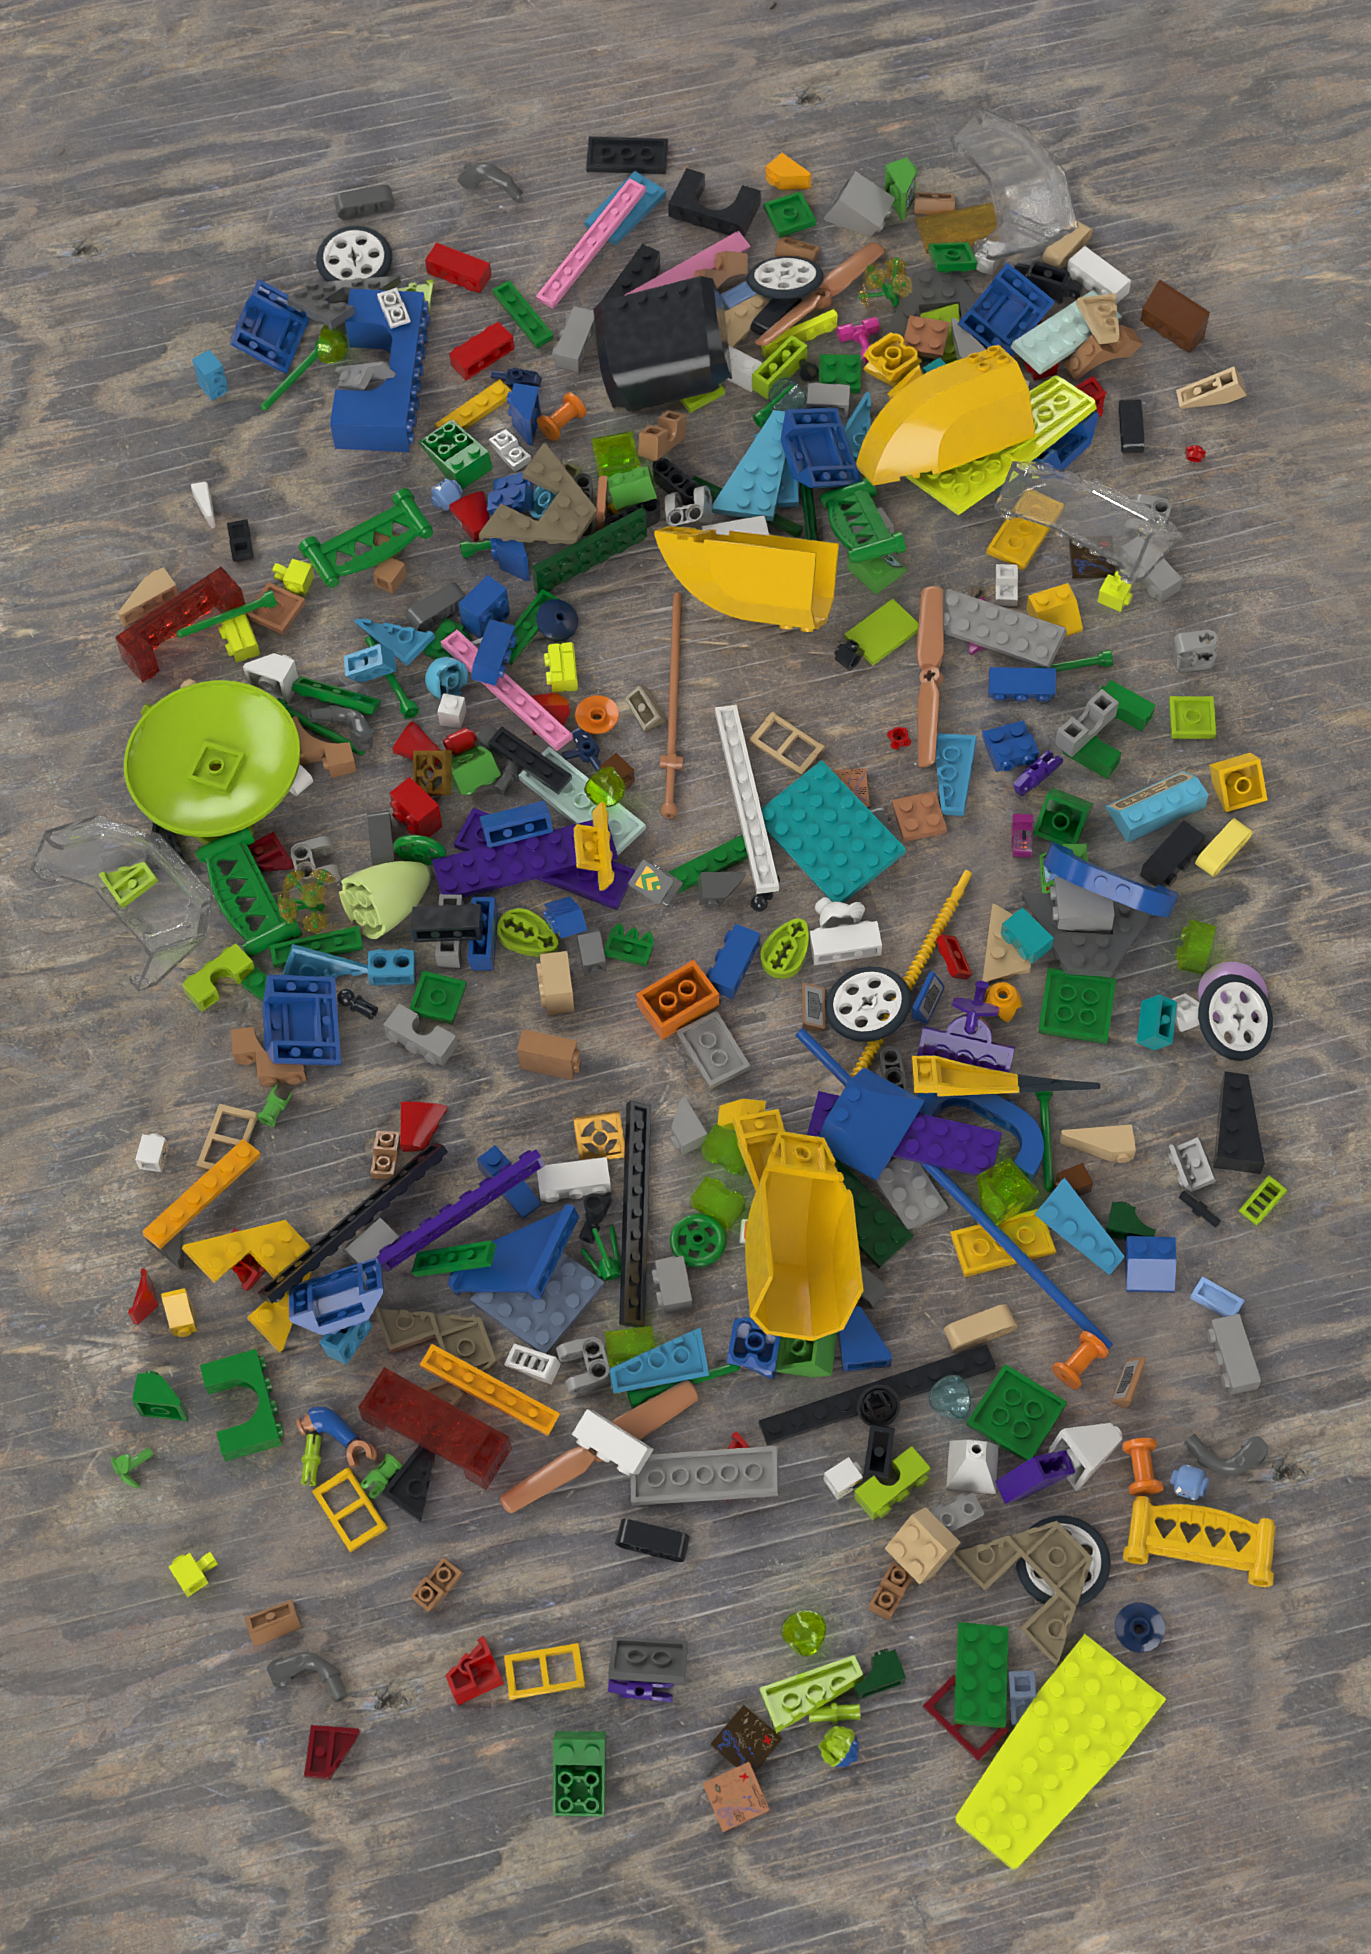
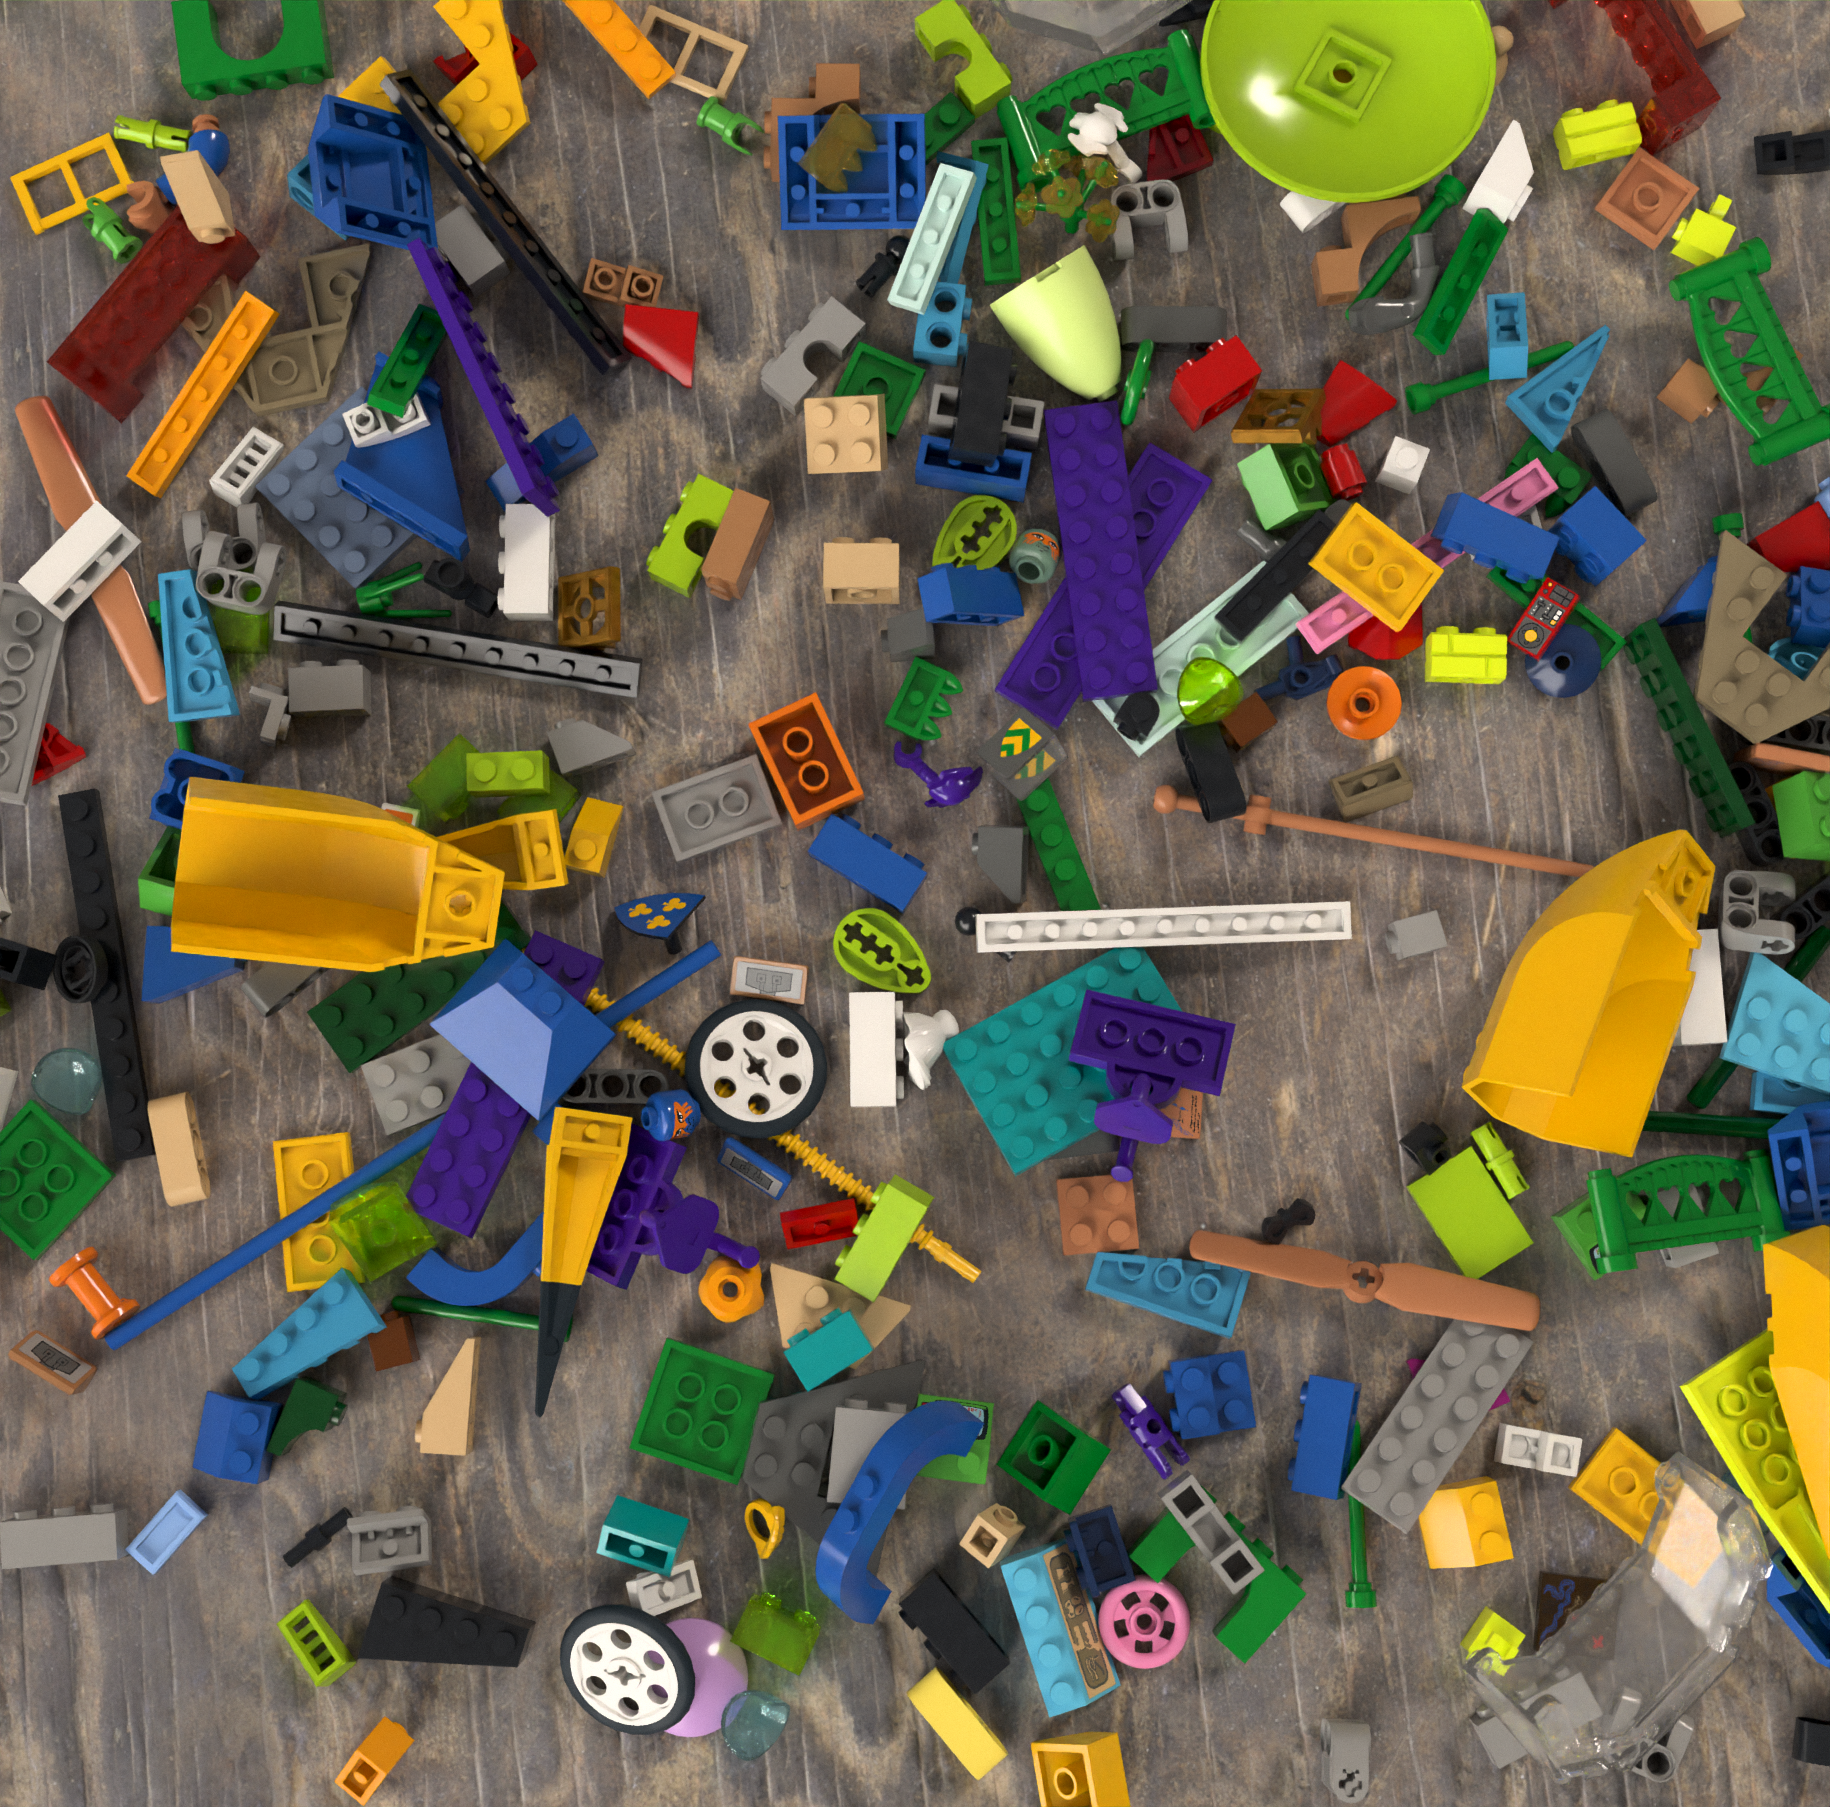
camera: 100 degrees right, 20 degrees up
(266, 888) = (1099, 136): none -> white piece
(267, 600) = (1653, 177): green piece -> none
(289, 1028) = (836, 148): none -> clear yellow plate
(343, 968) = (932, 238): none -> light aqua plate
(370, 1380) = (199, 196): none -> tan slope
(411, 1483) = (79, 268): black wing -> none
(446, 676) = (1465, 460): medium azure cylinder -> none
(470, 1003) = (846, 434): none -> tan brick
(497, 1275) = (374, 426): none -> white slope
(516, 824) = (1157, 539): blue brick -> none
(519, 707) = (1376, 567): none -> yellow plate
(532, 894) = (1035, 556): none -> sand green head
(536, 628) = (1543, 619): none -> tile
(560, 1095) = (701, 508): none -> lime arch
(593, 846) = (1090, 654): yellow bracket -> none
(603, 1353) = (214, 565): none -> light grey piece
(623, 824) = (1137, 716): none -> black plate
(650, 785) = (1210, 771): none -> black beam
(682, 922) = (946, 789): none -> dark purple piece
(696, 1309) = (276, 721): none -> light grey bracket
(704, 1258) = (388, 713): green plate -> none
(713, 1156) = (508, 774): none -> lime brick
(729, 673) = (1415, 935): none -> light grey brick
(773, 717) = (1287, 1034): tan window -> none
(785, 1069) = (659, 916): none -> blue shield
(827, 781) = (1152, 1053): none -> dark purple plate
(849, 619) = (1499, 1160): none -> lime pin
(898, 732) = (1244, 1198): red plate -> none
(899, 713) = (1276, 1227): none -> black piece
(906, 1039) = (671, 1115): none -> blue head
(955, 917) = (882, 1237): none -> lime brick
(1021, 835) = (1027, 1379): magenta leg -> none
(1110, 788) = (1100, 1549): none -> dark blue bracket
(1114, 839) = (993, 1535): none -> tan brick
(1133, 950) = (775, 1521): none -> yellow piece
(1142, 778) = (1124, 1647): none -> bright pink plate
(1192, 717) = (1221, 1724): lime plate -> none
(1248, 952) = (753, 1723): none -> clear light blue helmet
(1323, 1153) = (374, 1760): none -> light orange slope

